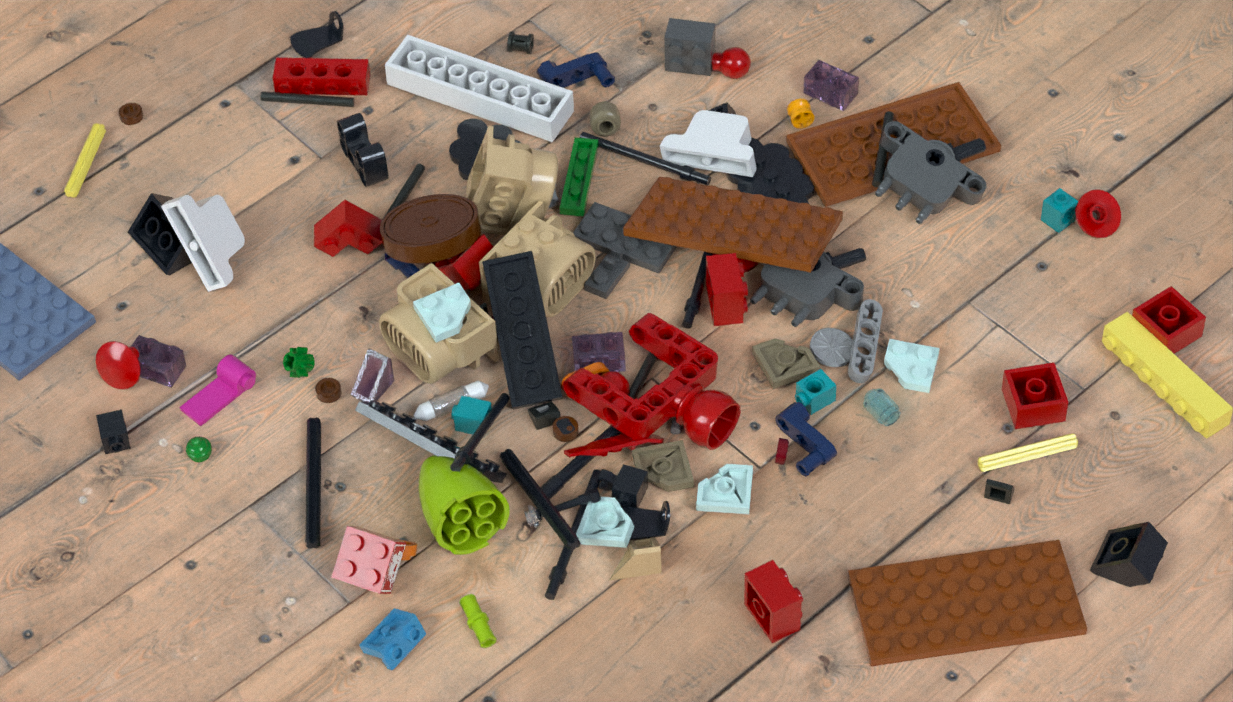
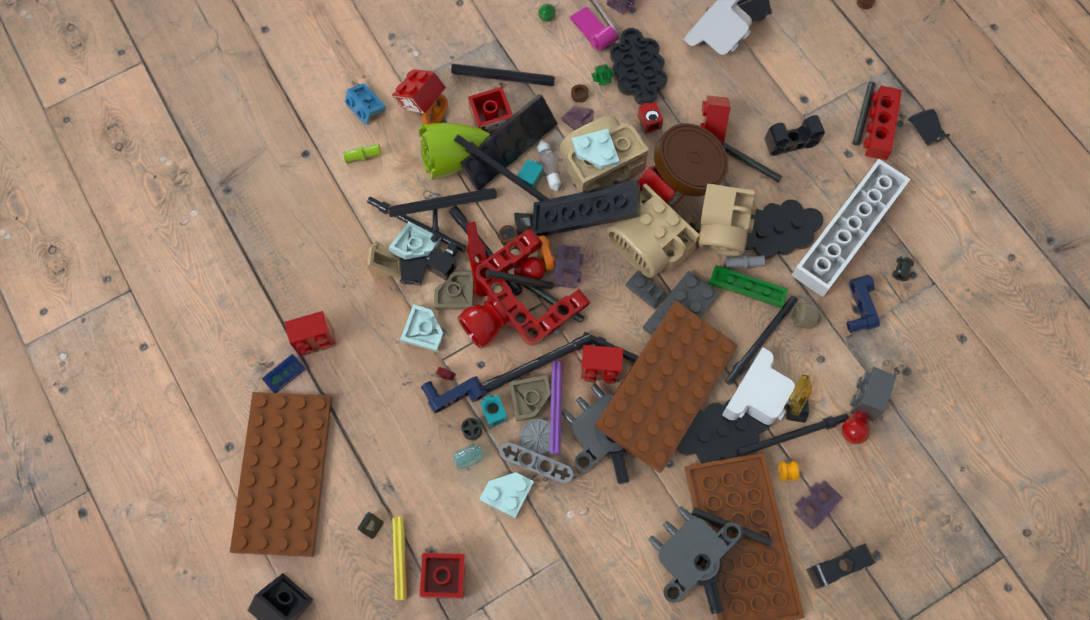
camera: 100 degrees right, 20 degrees up
(275, 328) = (638, 66): none -> black plate
(357, 303) = (650, 117): none -> red brick
(384, 473) = (489, 109): none -> red brick
(636, 383) = (519, 279): none -> pearl dark grey bar
(705, 322) = (500, 380): none -> black piece
(709, 105) = (800, 394): none -> clear yellow tile
(733, 90) = (827, 423): none -> black bar
(791, 330) = (556, 406): none -> medium lavender axle
(833, 636) = (283, 373): none -> clear blue tile
(849, 407) = (471, 424): none -> pearl dark grey wheel
(889, 43) = (830, 571): none -> black beam

